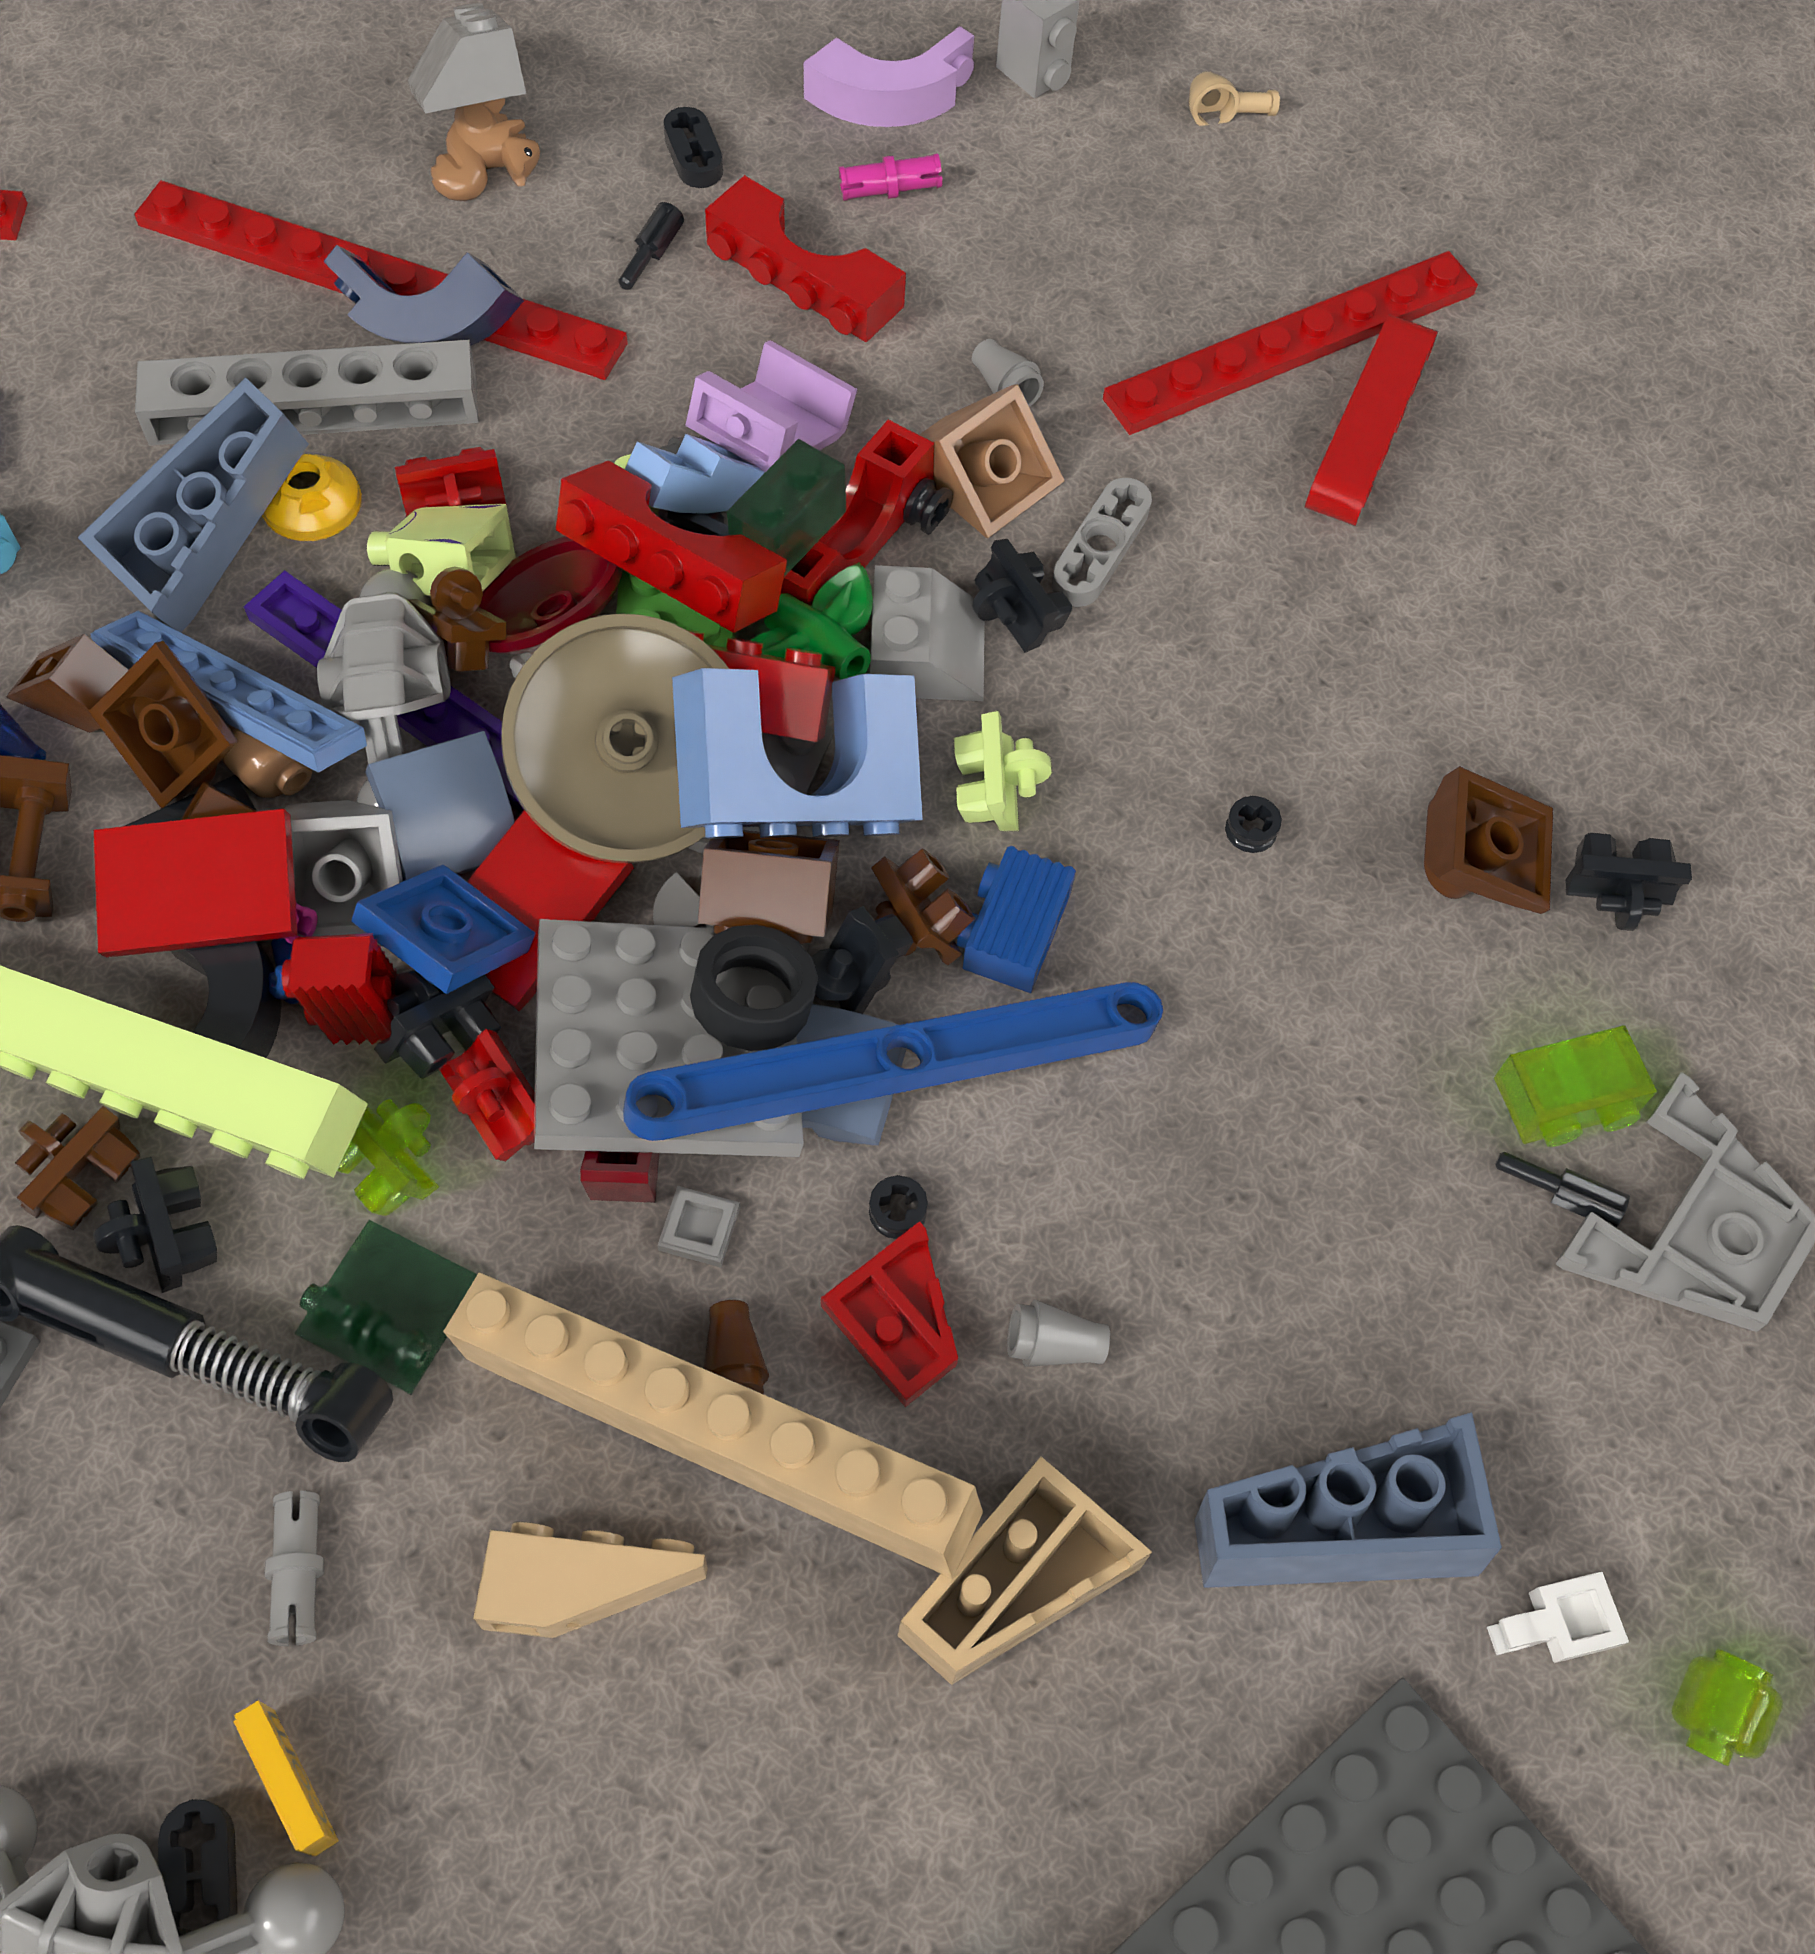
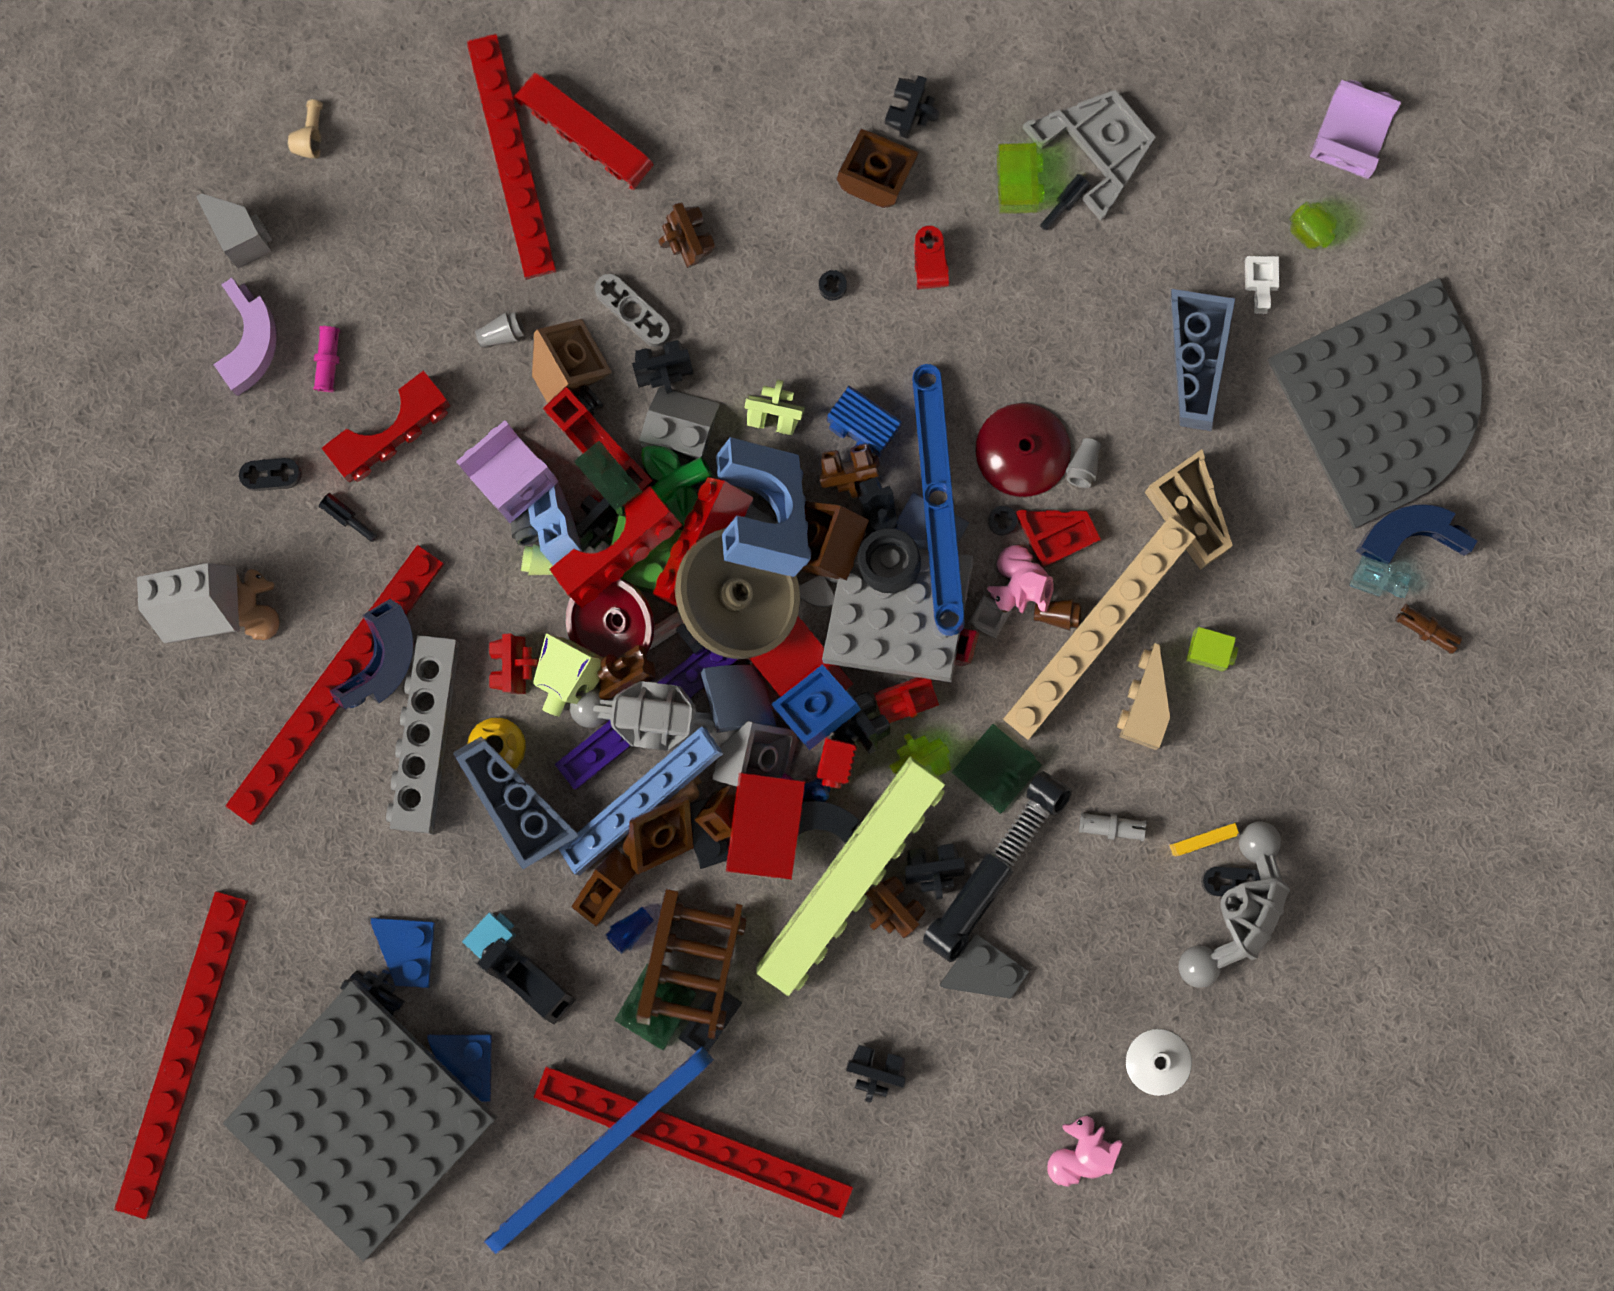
camera: 70 degrees left, 20 degrees up
(722, 1696) = (1212, 649): none -> lime brick
(777, 1271) = (1027, 581): none -> bright pink animal
(1043, 1254) = (1020, 471): none -> dark red dish
(1279, 577) = (682, 237): none -> reddish brown hips
(1353, 967) = (930, 263): none -> red piece

